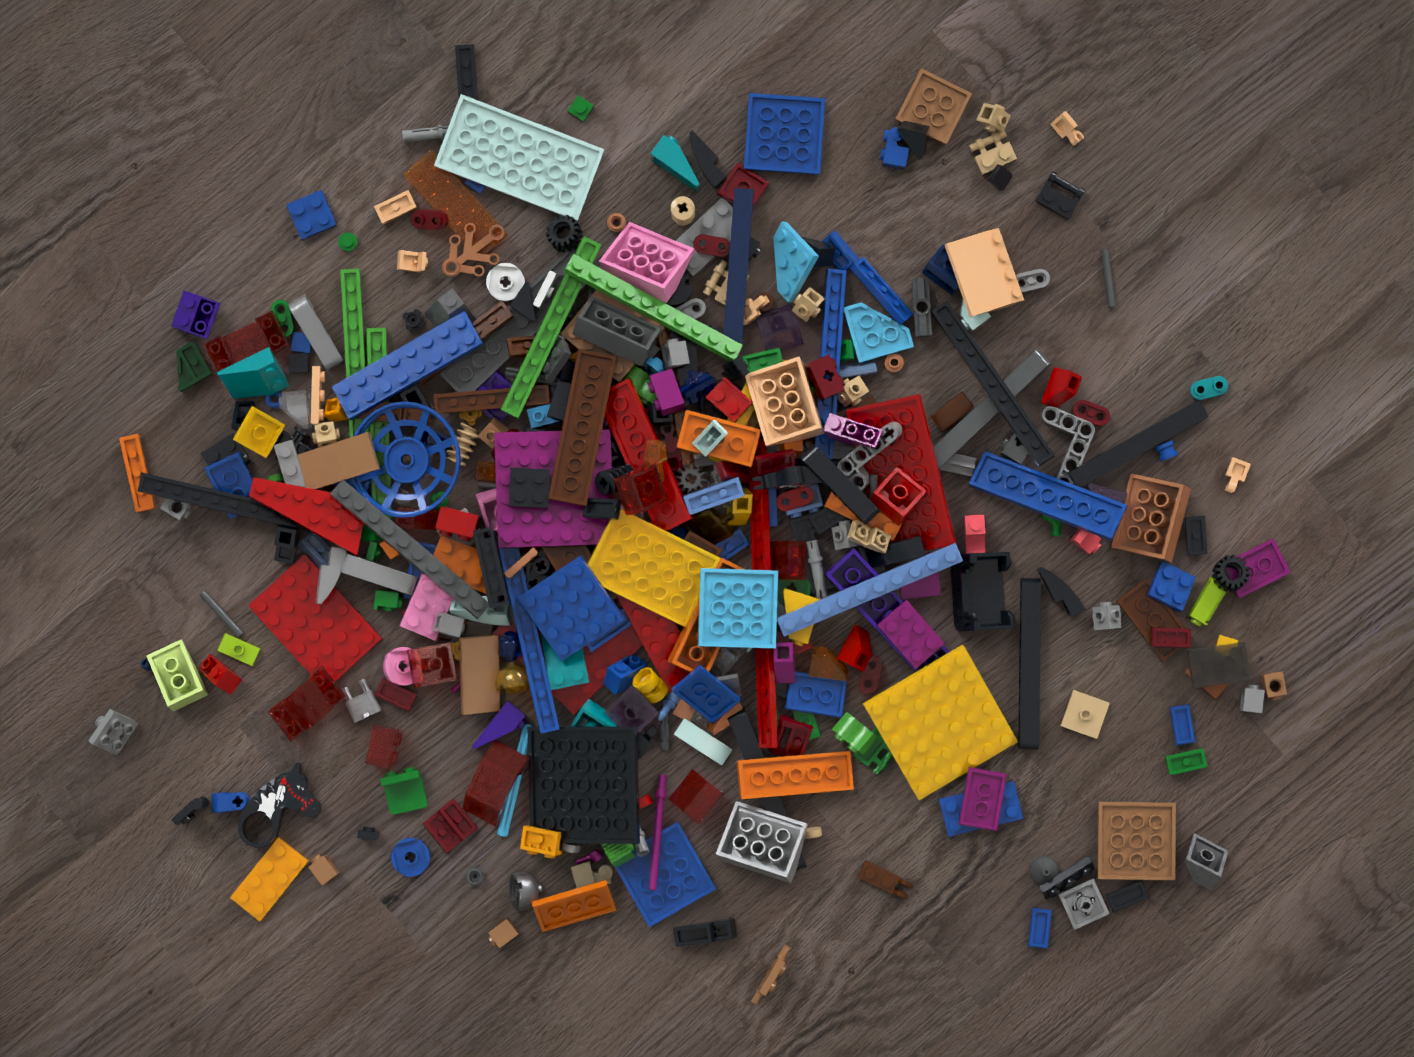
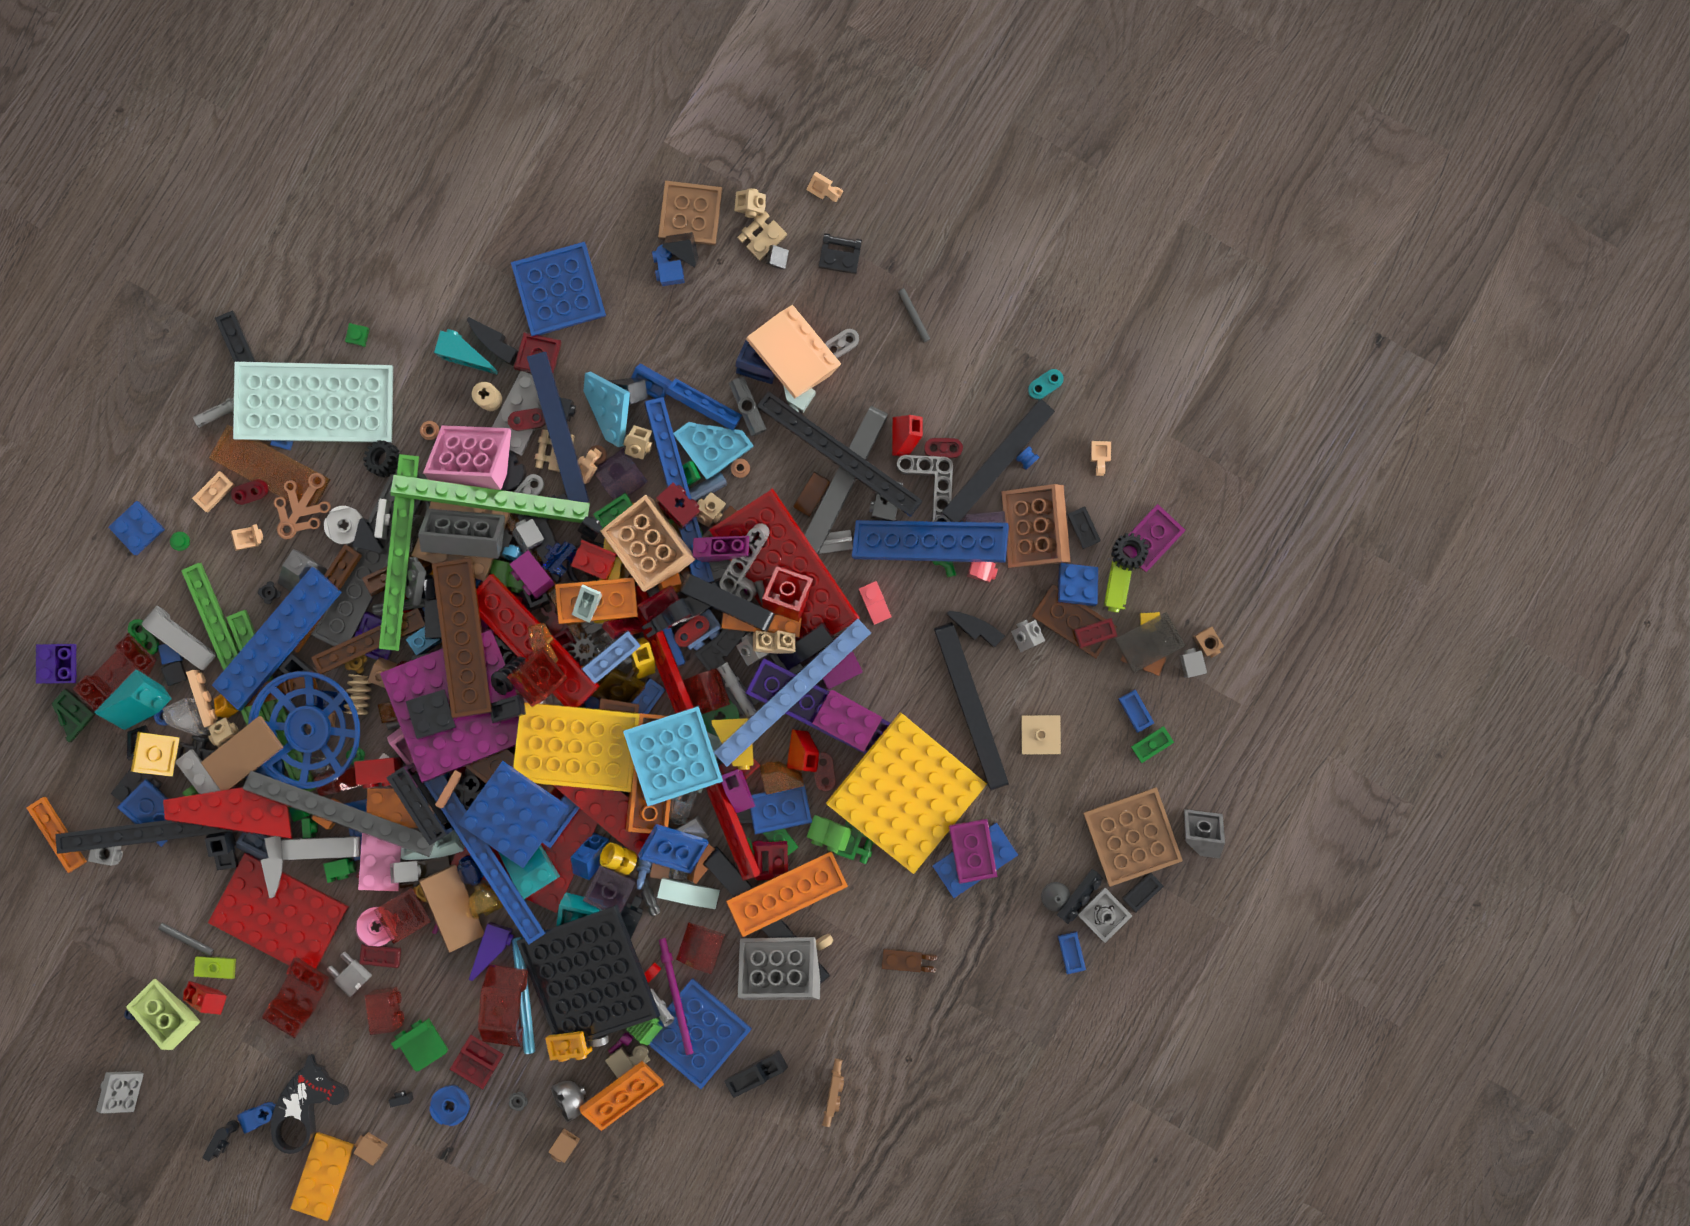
camera: 30 degrees left, 0 degrees up
(980, 592) = (900, 655): black windscreen -> none

